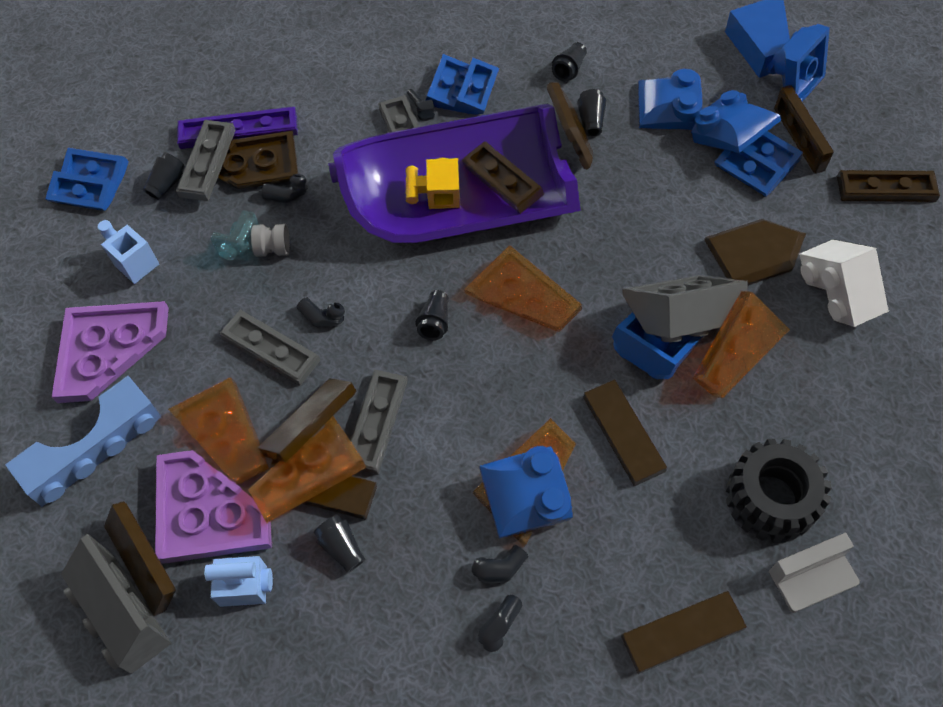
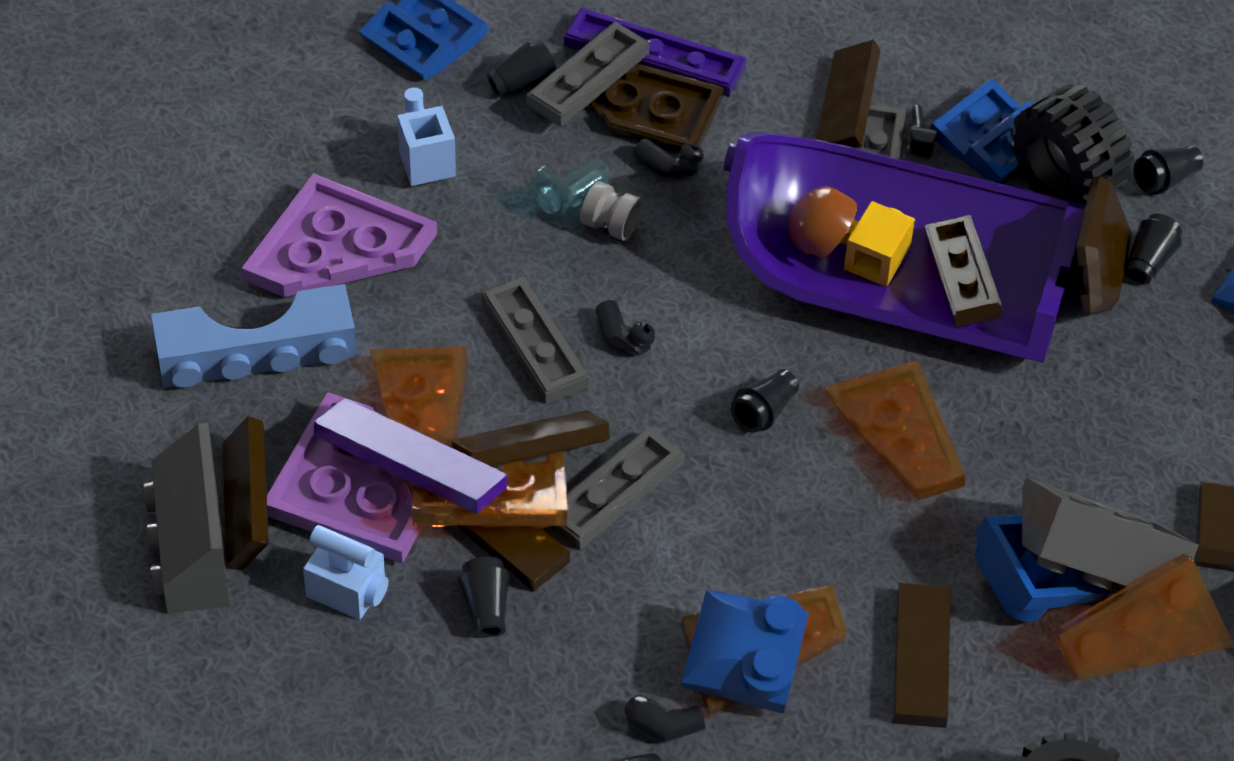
camera: 25 degrees right, 10 degrees down
(238, 475) = (410, 455): none -> tile
(368, 101) = (849, 94): none -> dark brown tile
(403, 186) = (820, 220): none -> dark orange hair
(518, 71) = (1070, 141): none -> black tyre

